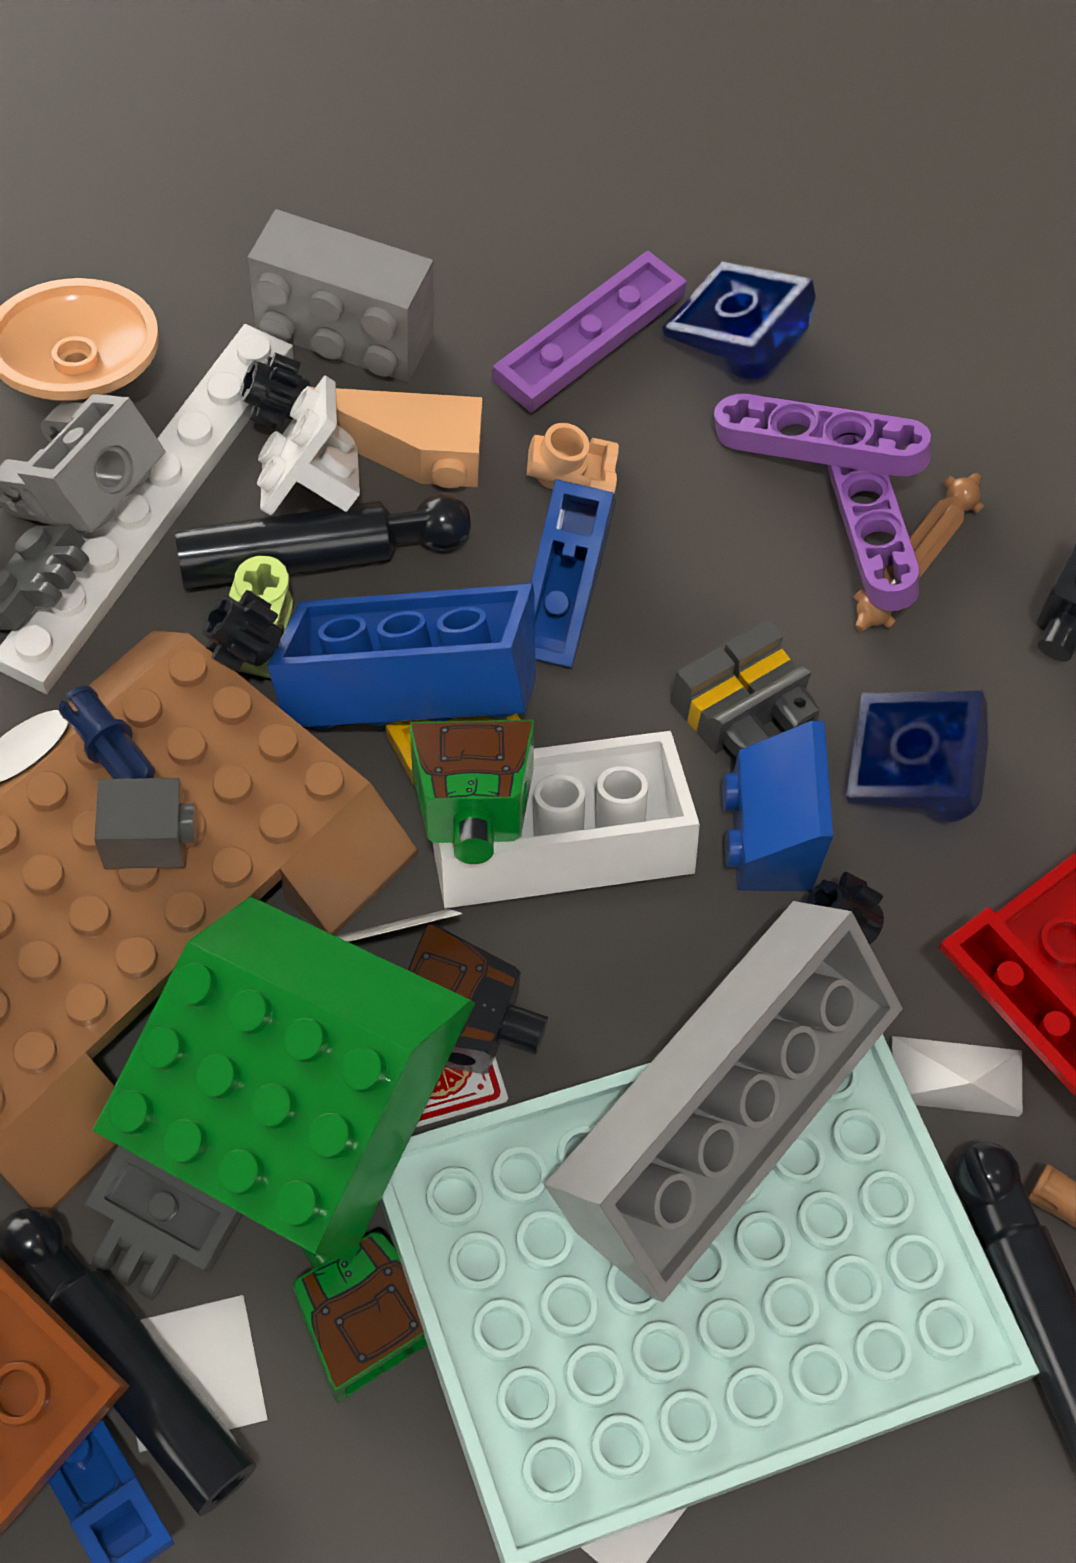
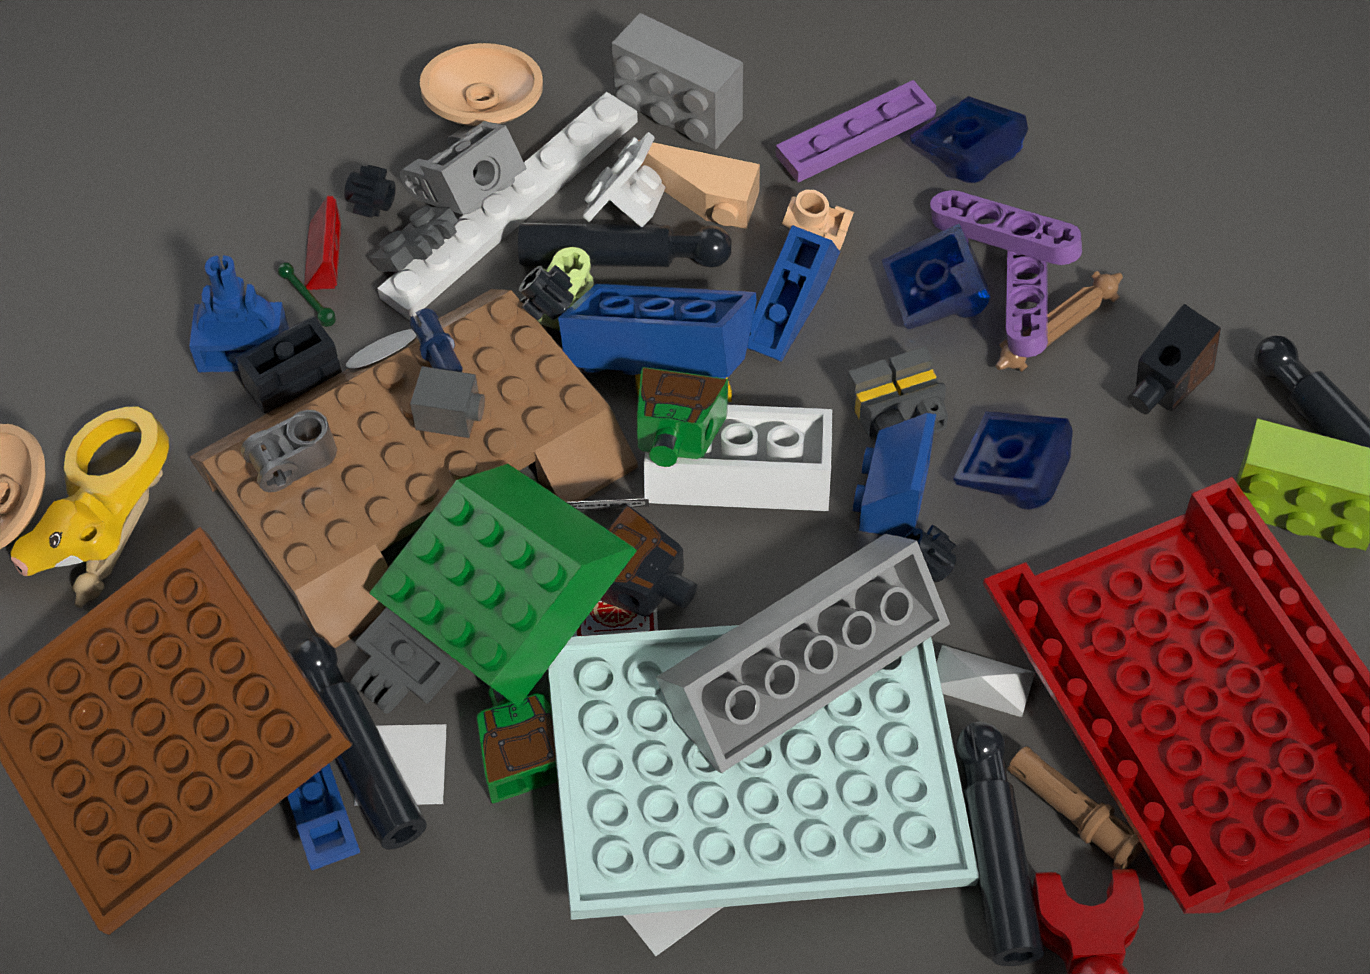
camera: 20 degrees right, 5 degrees down
(272, 389) = (611, 137): black gear -> none
(752, 520) = (937, 279): none -> clear blue slope

